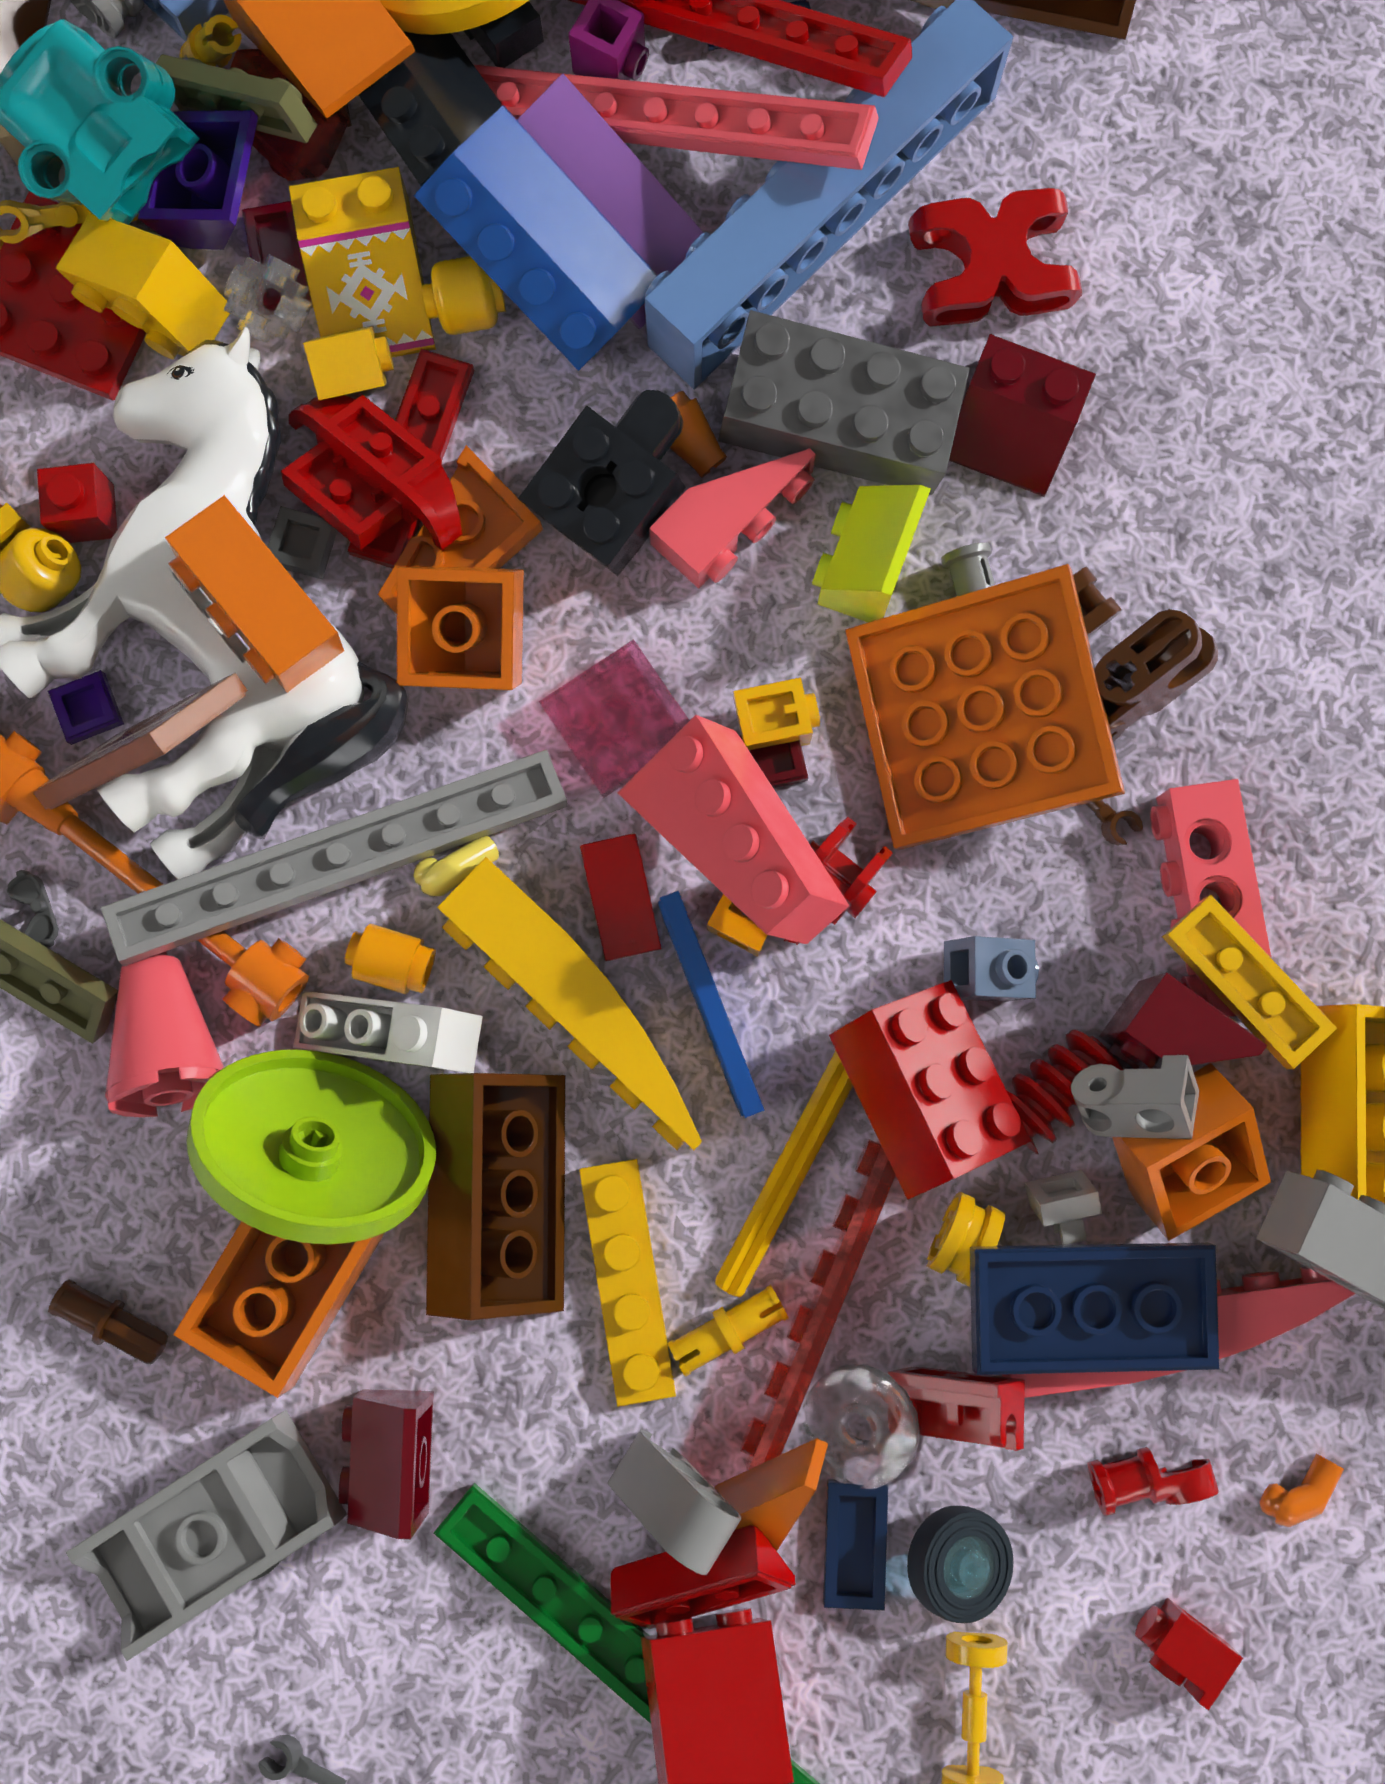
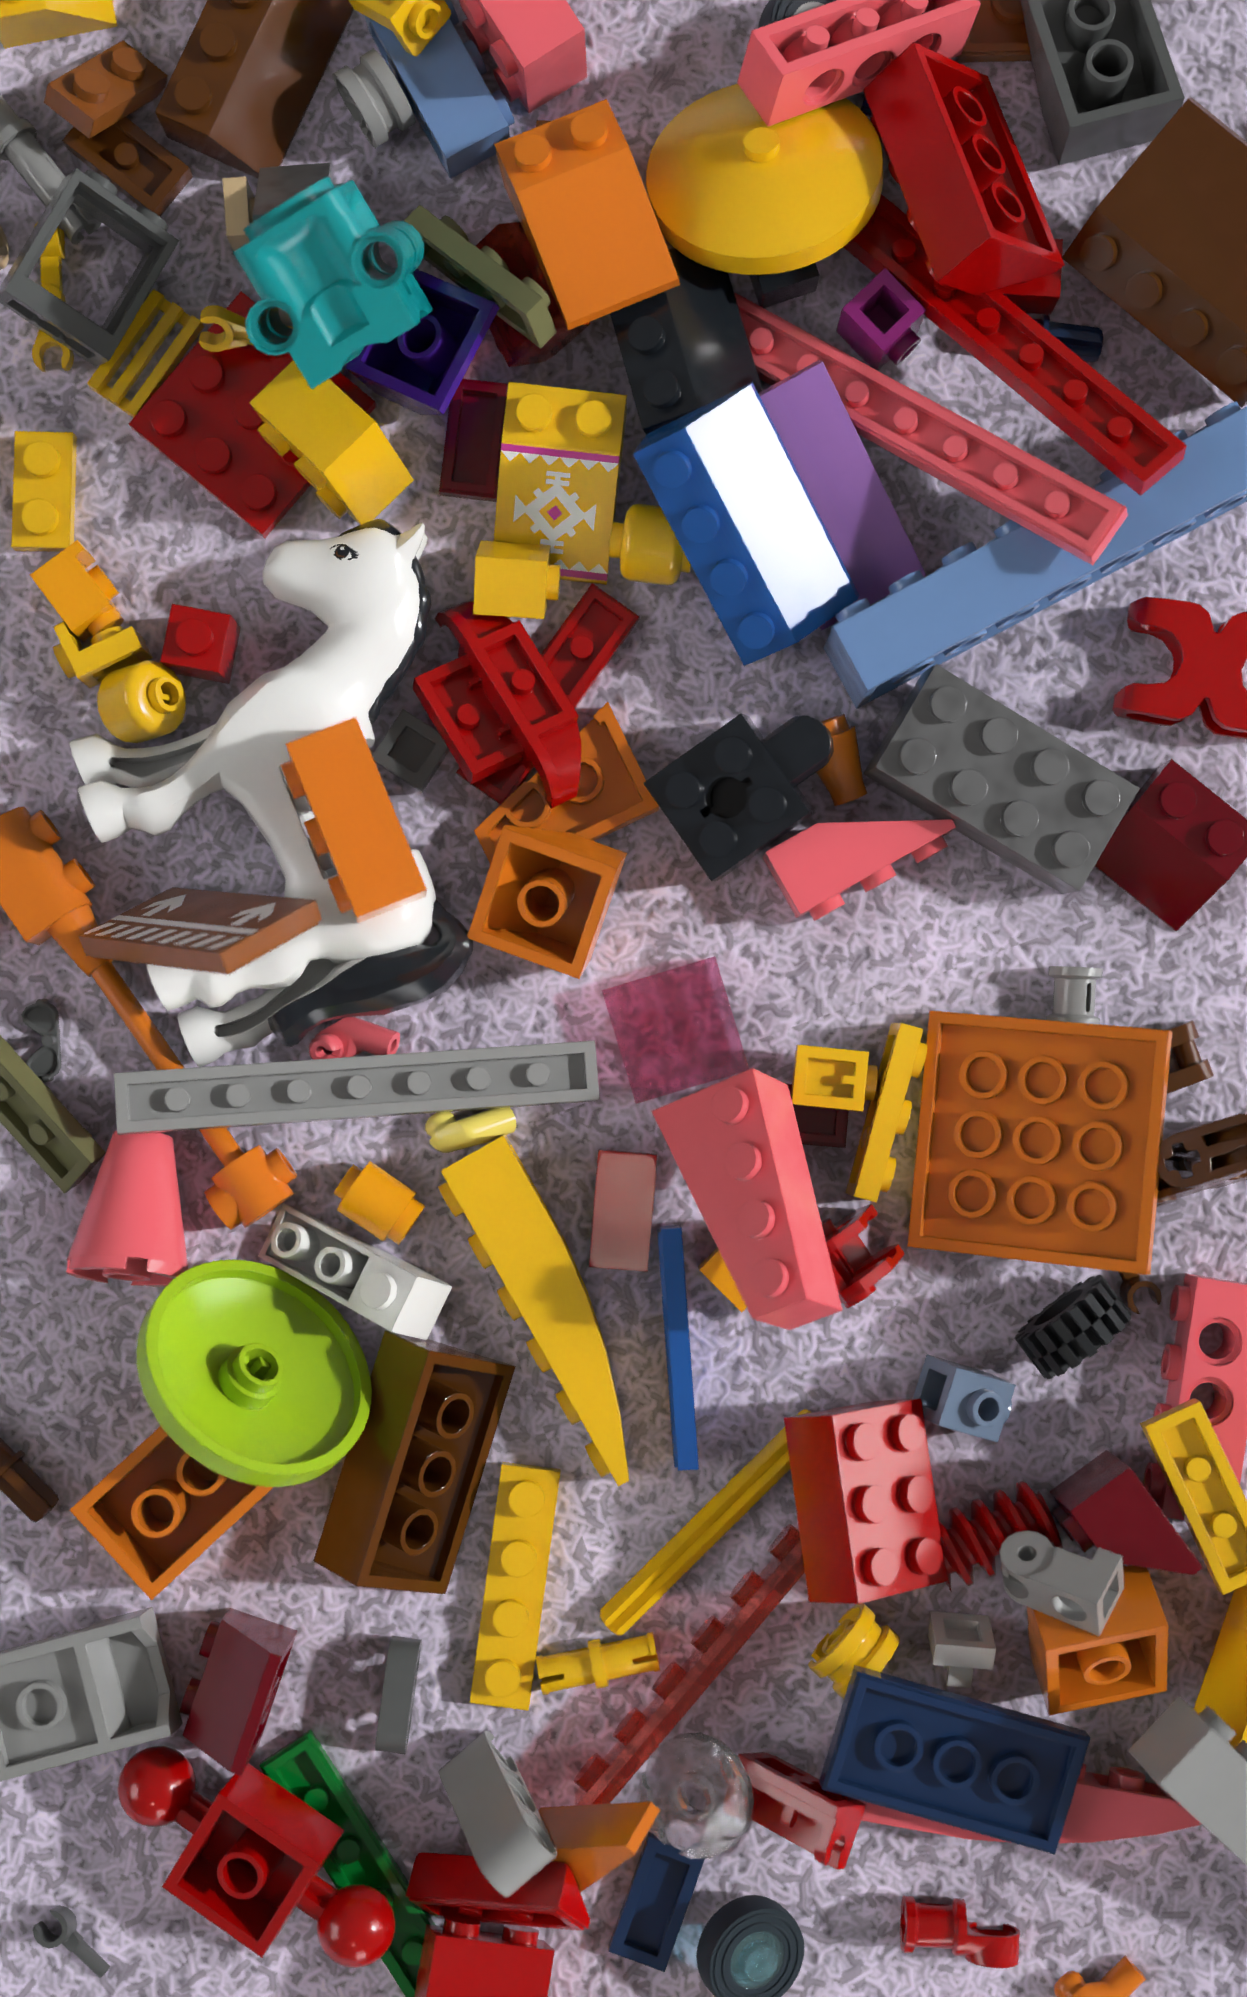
camera: 15 degrees right, 5 degrees up
(85, 707) = (150, 856): dark purple tile -> none
(213, 42) = (471, 201): yellow pin -> none
(246, 292) = (447, 514): clear brick -> none
(321, 814) = (352, 1037): none -> coral arm
(452, 1623) = (254, 1858): none -> red brick
(546, 1420) = (398, 1694): none -> dark grey beam
(836, 732) = (888, 1113): none -> yellow plate
(870, 550) = (980, 942): neon yellow slope -> none
(1070, 870) = (1073, 1327): none -> black tyre

